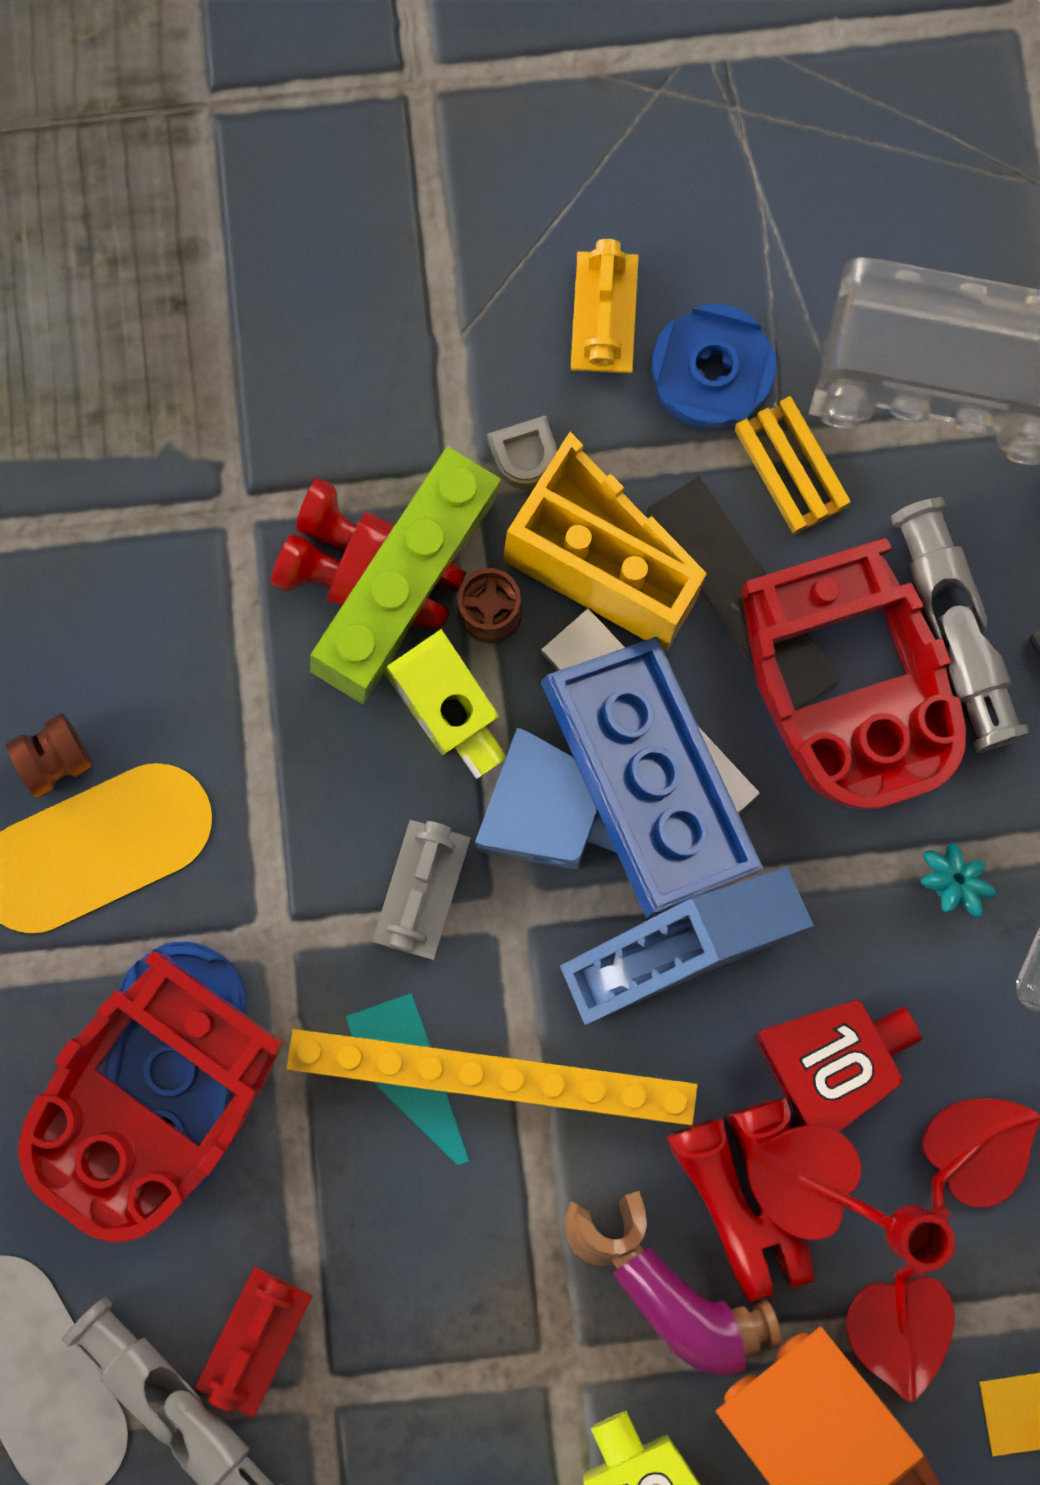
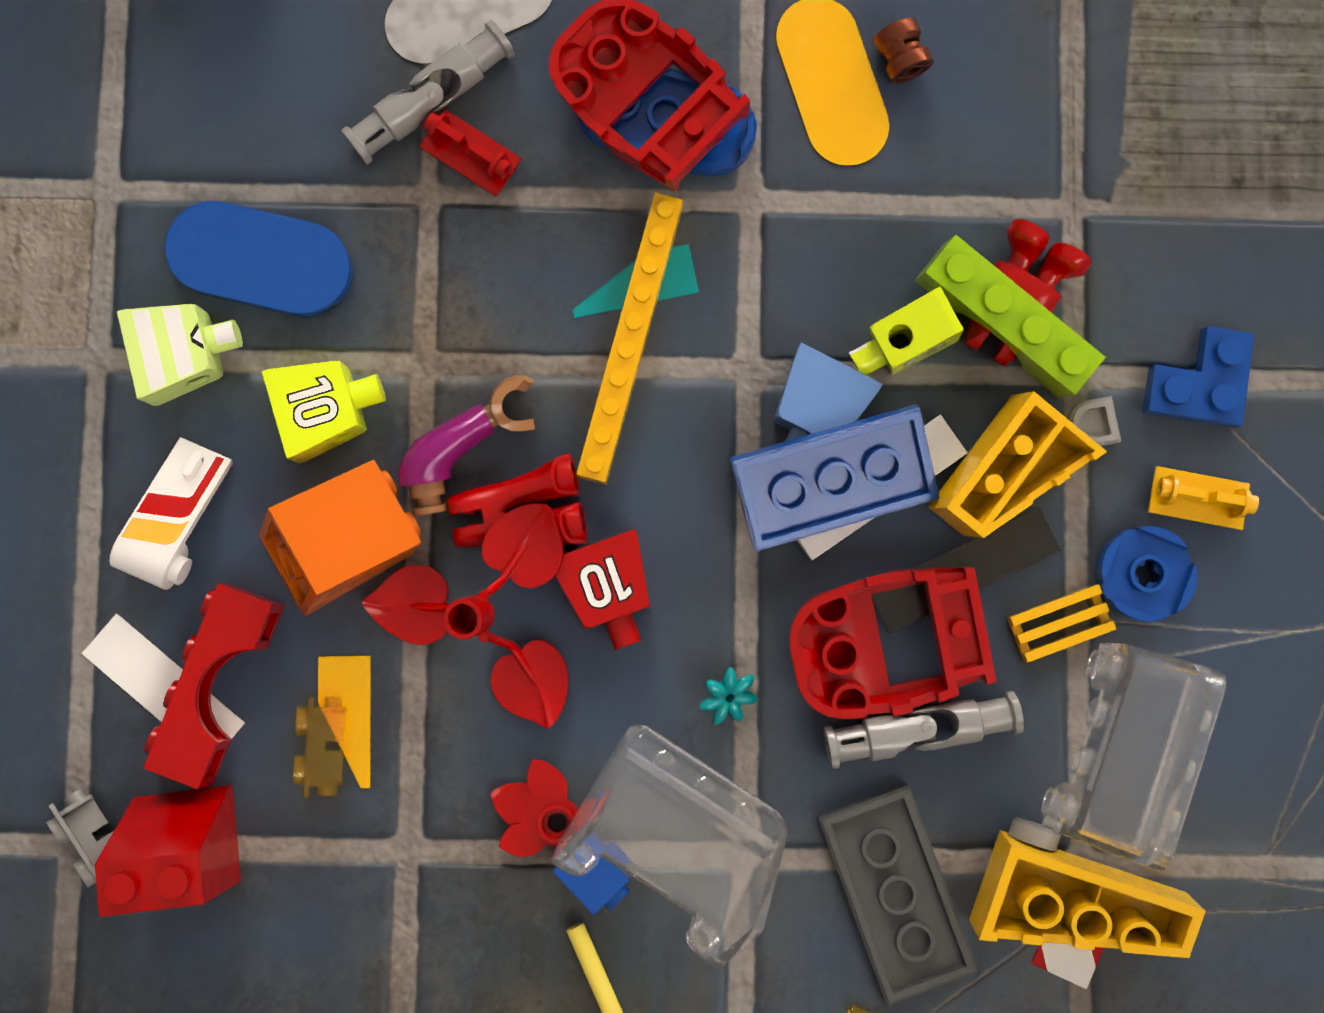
camera: 90 degrees right, 5 degrees up
(422, 889) = (772, 306): light grey hinge -> none
(459, 305) = (1214, 390): none -> blue plate
(490, 592) = (985, 374): copper wheel -> none
(686, 943) = (708, 490): medium blue arch -> none

